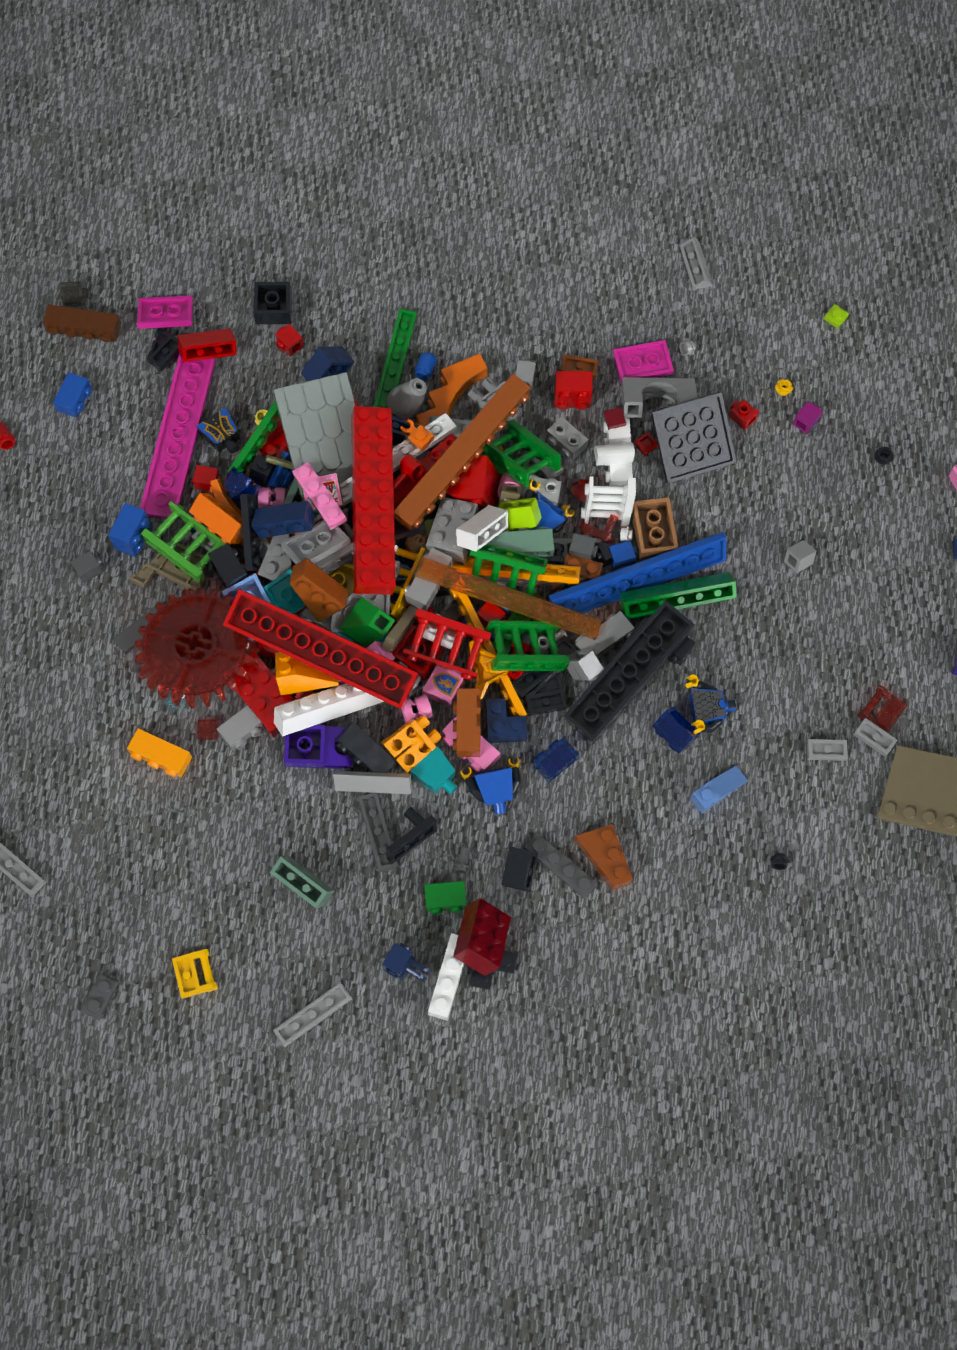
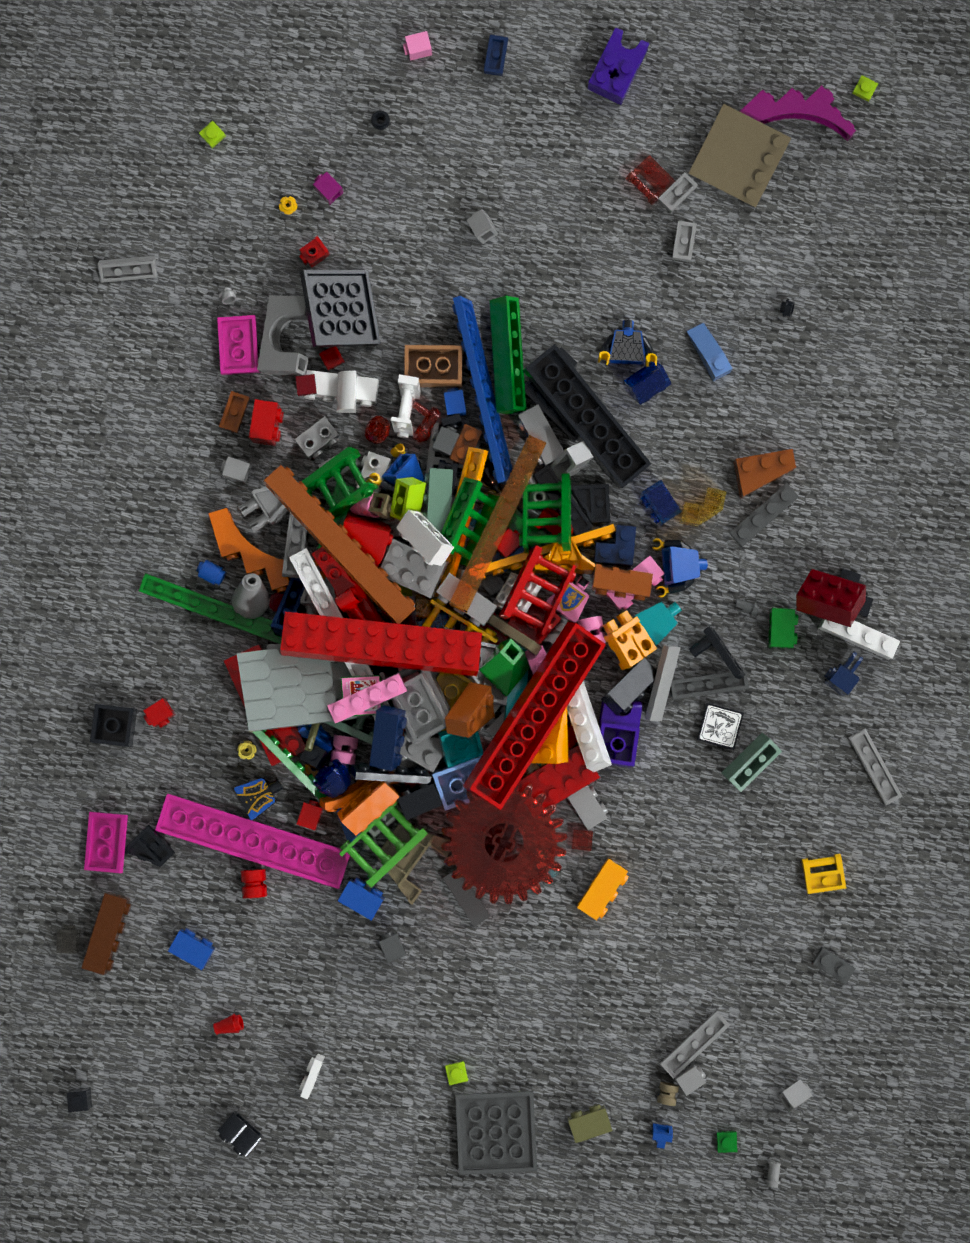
camera: 80 degrees left, 15 degrees up
(137, 438) = (253, 883): none -> red wheel
(206, 345) = (156, 800): red brick -> none
(327, 362) = (198, 676): dark blue brick -> none
(336, 849) = (720, 726): none -> tile
(418, 436) = (313, 587): orange plate -> none
(519, 869) = (766, 554): black panel -> none
(560, 808) = (712, 505): none -> clear yellow brick
(626, 534) = (433, 395): white plate -> none

